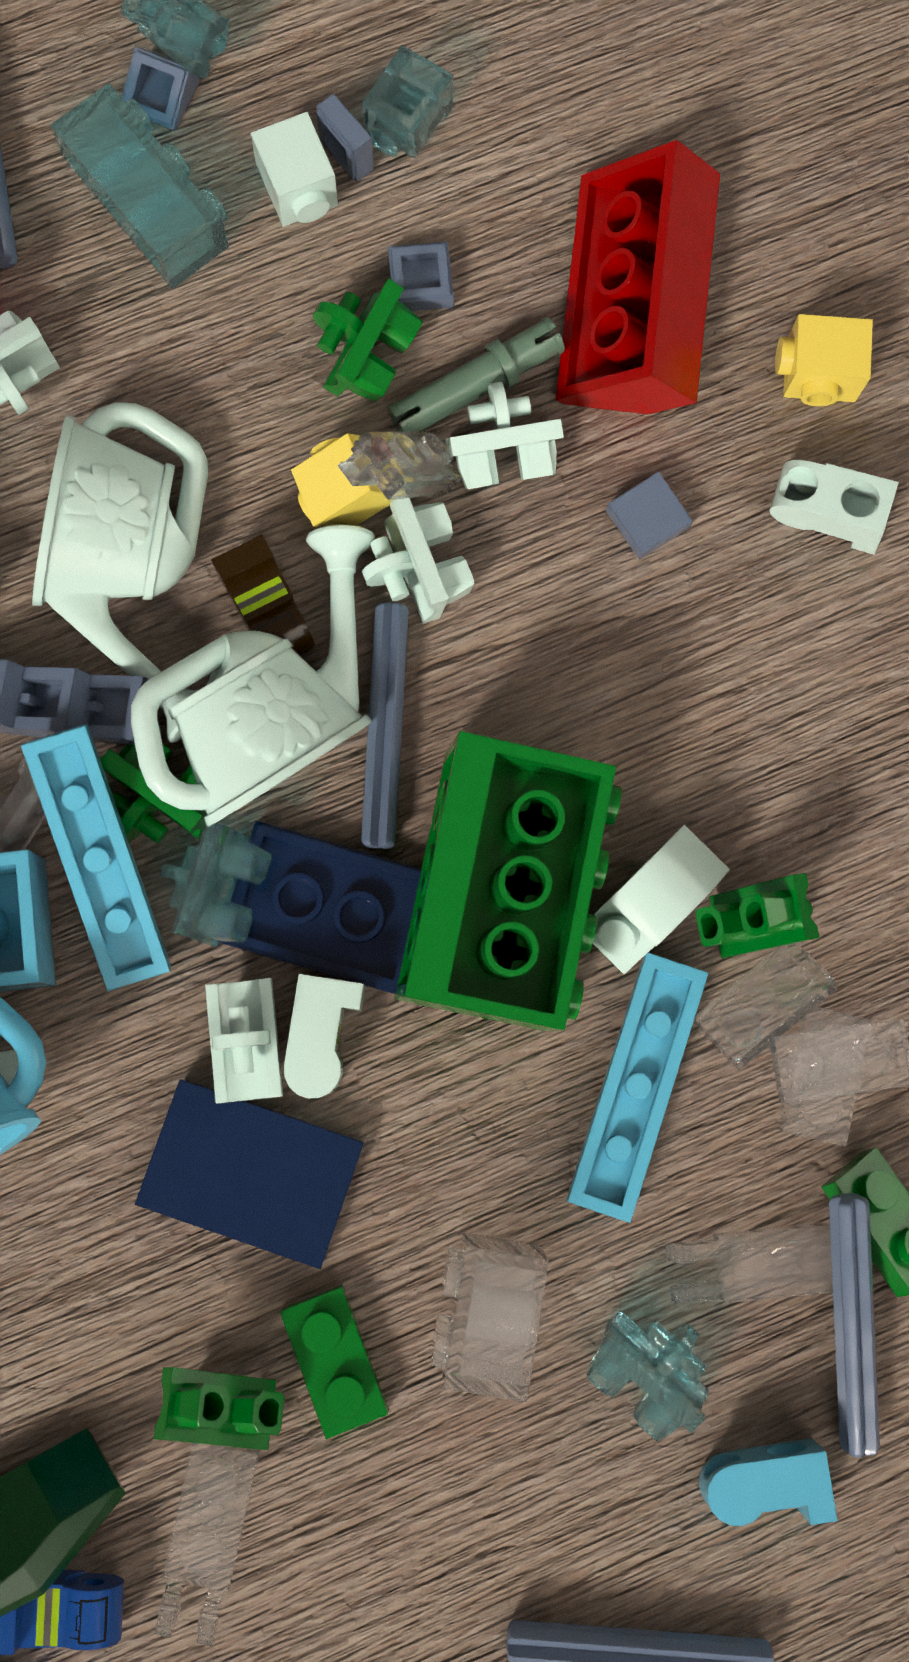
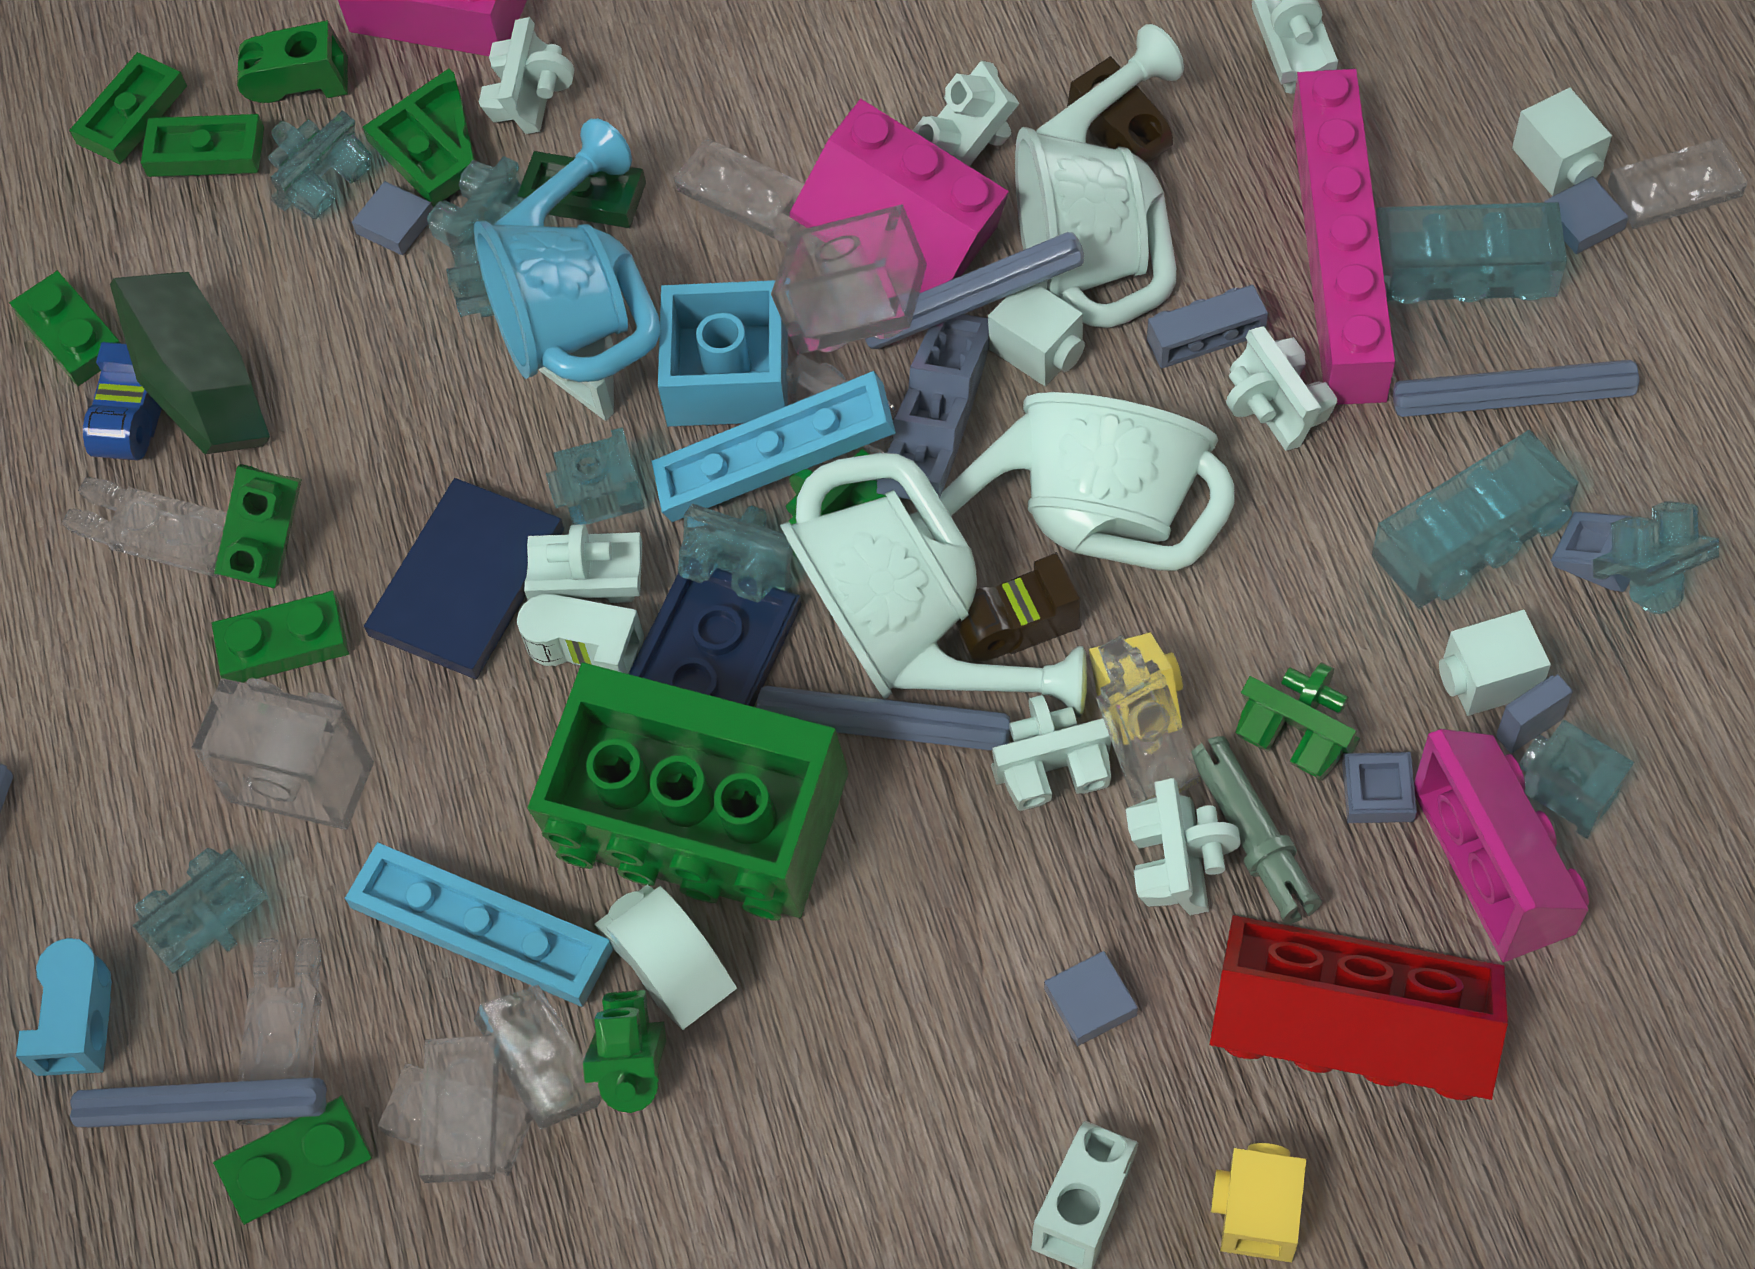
camera: 110 degrees right, 20 degrees down
(141, 1022) = (596, 480): none -> clear light blue brick
(485, 165) = (1498, 843): none -> dark pink slope

